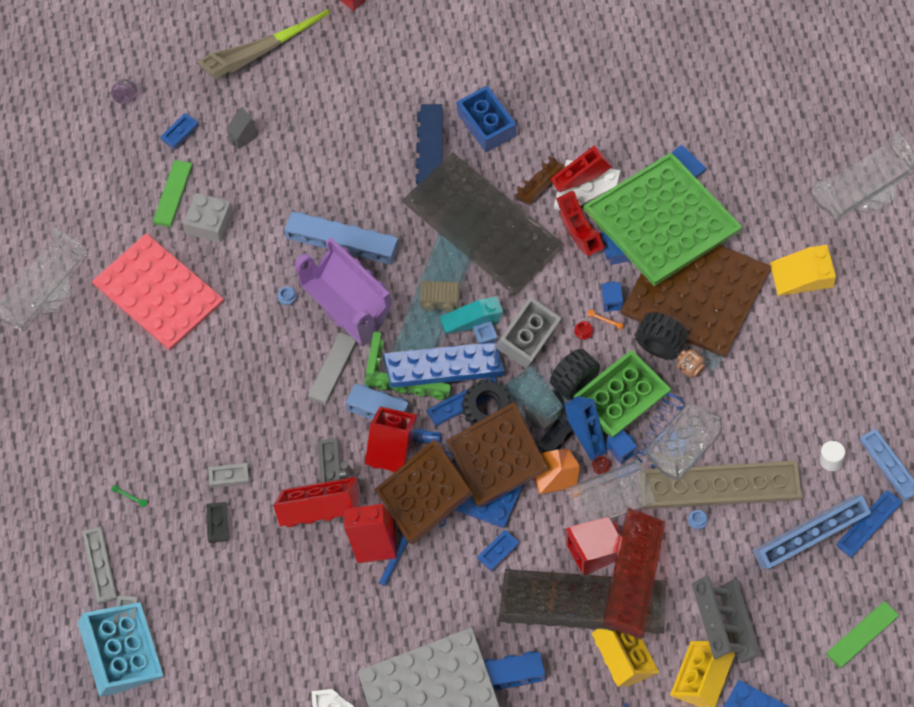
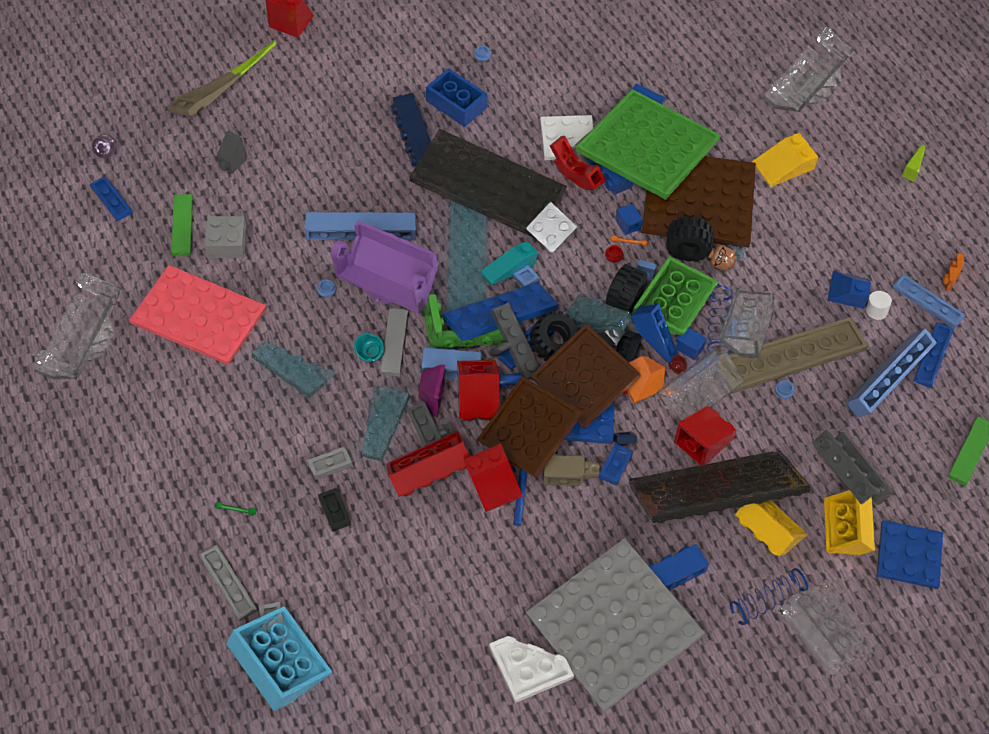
camera: 25 degrees left, 5 degrees down
(114, 148) = (111, 198): none -> blue tile
(179, 131) = (170, 169): blue plate -> none
(227, 372) = (298, 373): none -> clear light blue wing
(296, 442) = (385, 414): none -> clear light blue wing
(304, 363) = (369, 343): none -> teal hair
(349, 427) = (432, 388): none -> magenta slope
(439, 295) = (474, 252): dark tan brick -> none
(443, 399) = (514, 341): none -> dark grey plate
(449, 544) = (569, 470): none -> dark tan hinge
(517, 526) = (625, 437): none -> dark blue tile
(528, 332) = (568, 265): light grey brick -> none
(529, 282) = (551, 227): none -> bracket
(534, 73) = (482, 53): none -> medium blue plate
(539, 181) = (524, 139): reddish brown plate -> none
(582, 170) = (561, 119): red slope -> none
(607, 355) = (647, 267): none -> medium blue plate
(634, 573) = (759, 448): clear red plate -> none
(811, 430) = (849, 289): none -> blue slope

